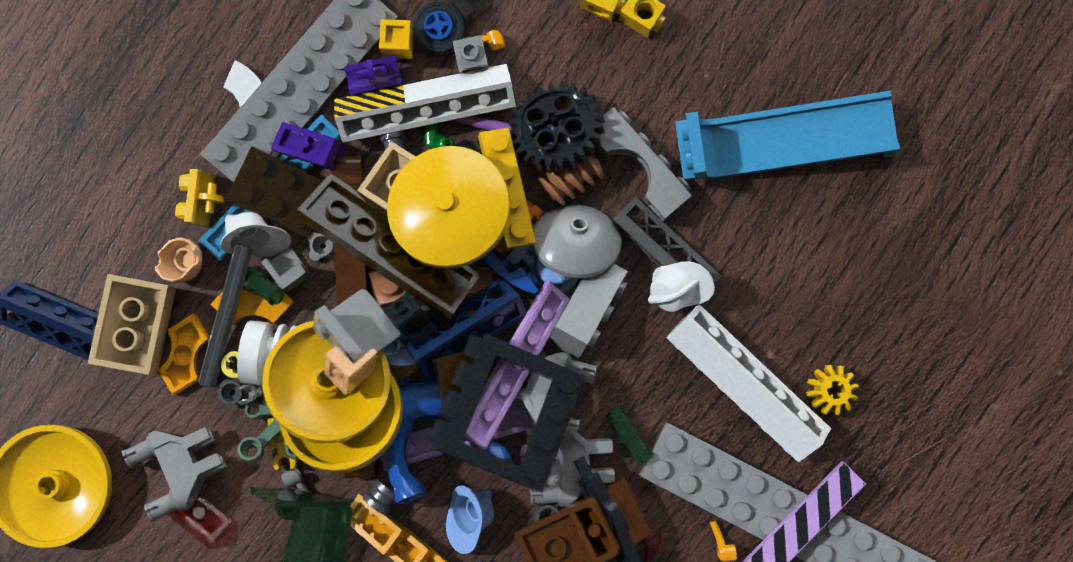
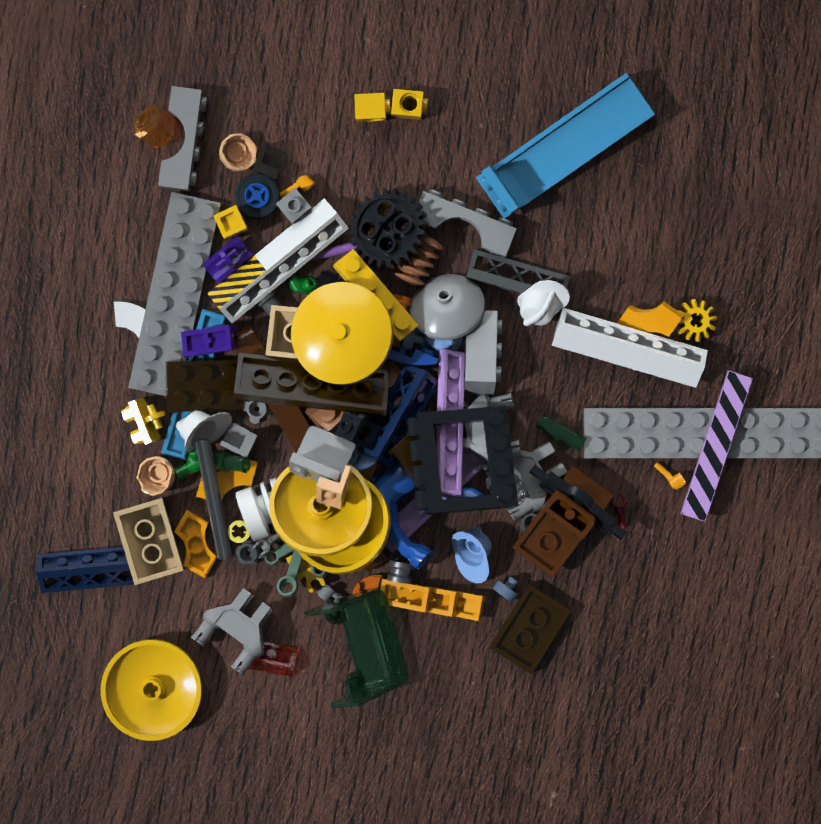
camera: 25 degrees left, 5 degrees up
(217, 271) = (191, 467): none -> green arm
(341, 491) = (369, 583): none -> orange tile
(796, 369) = (660, 319): none -> light orange tile

